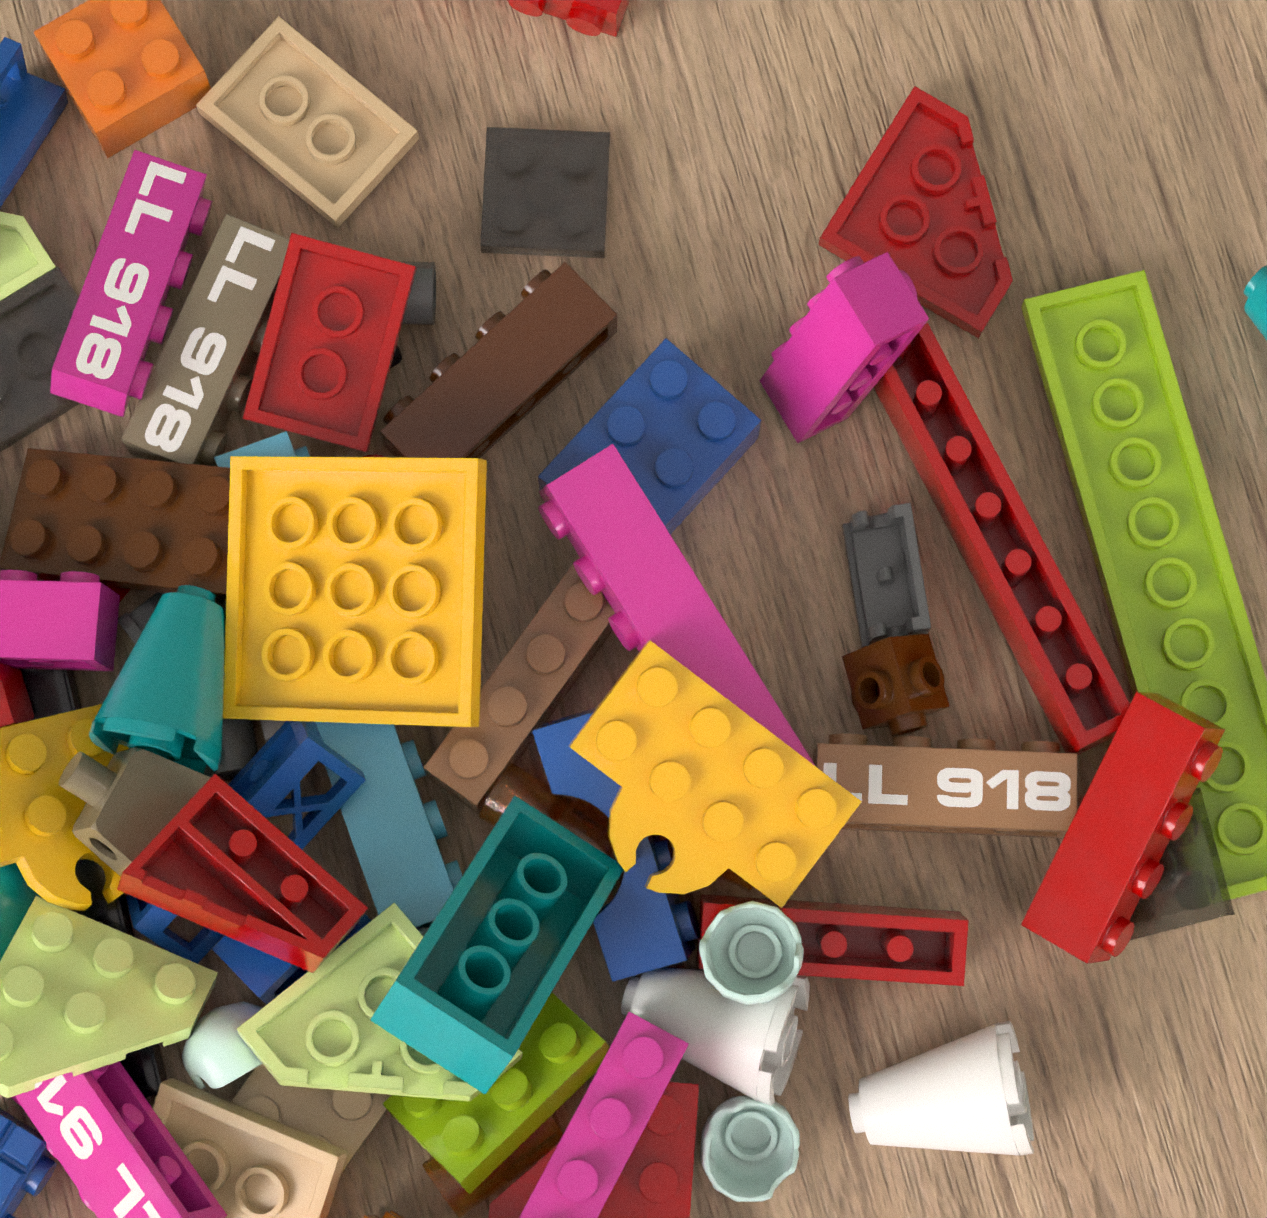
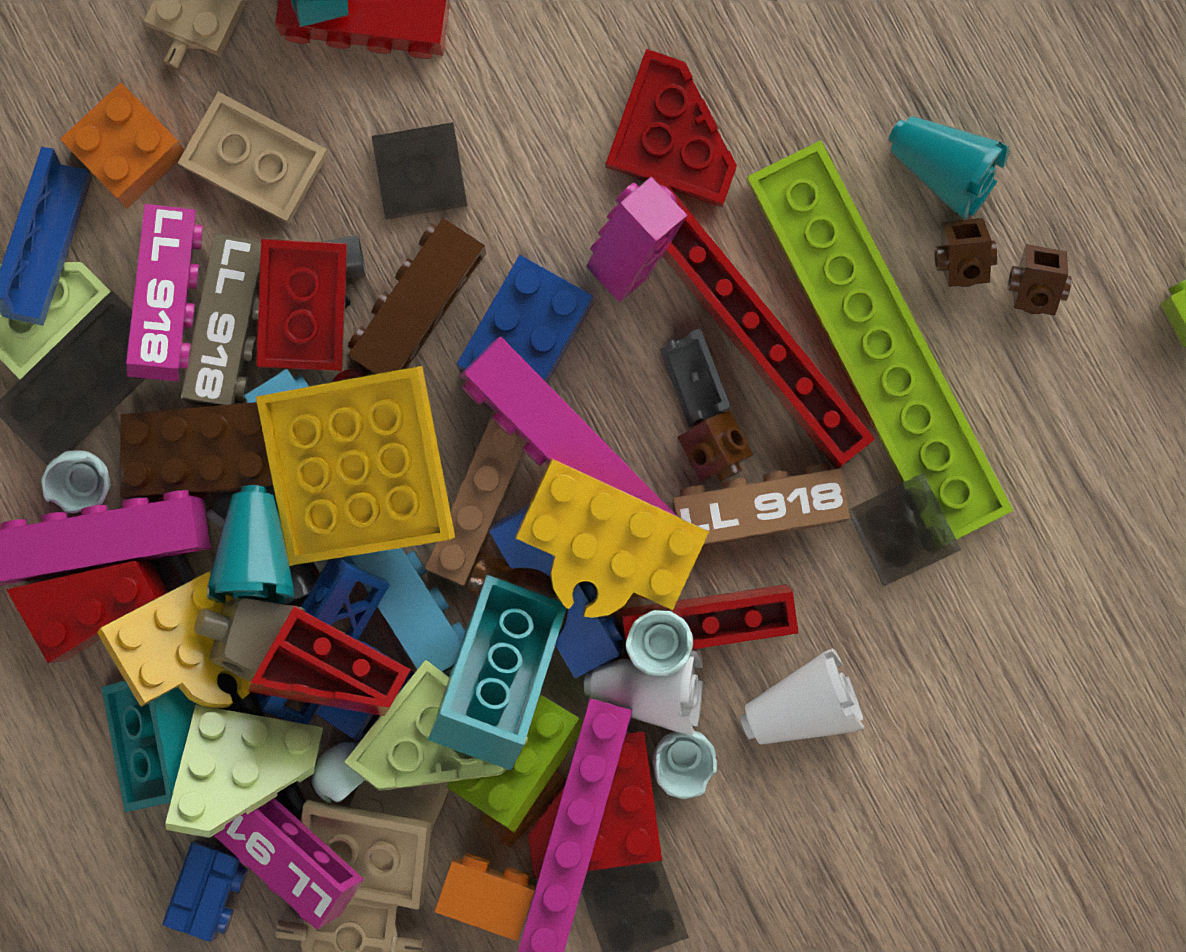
camera: 10 degrees left, 5 degrees up
(1124, 828) = (880, 510): red brick -> none

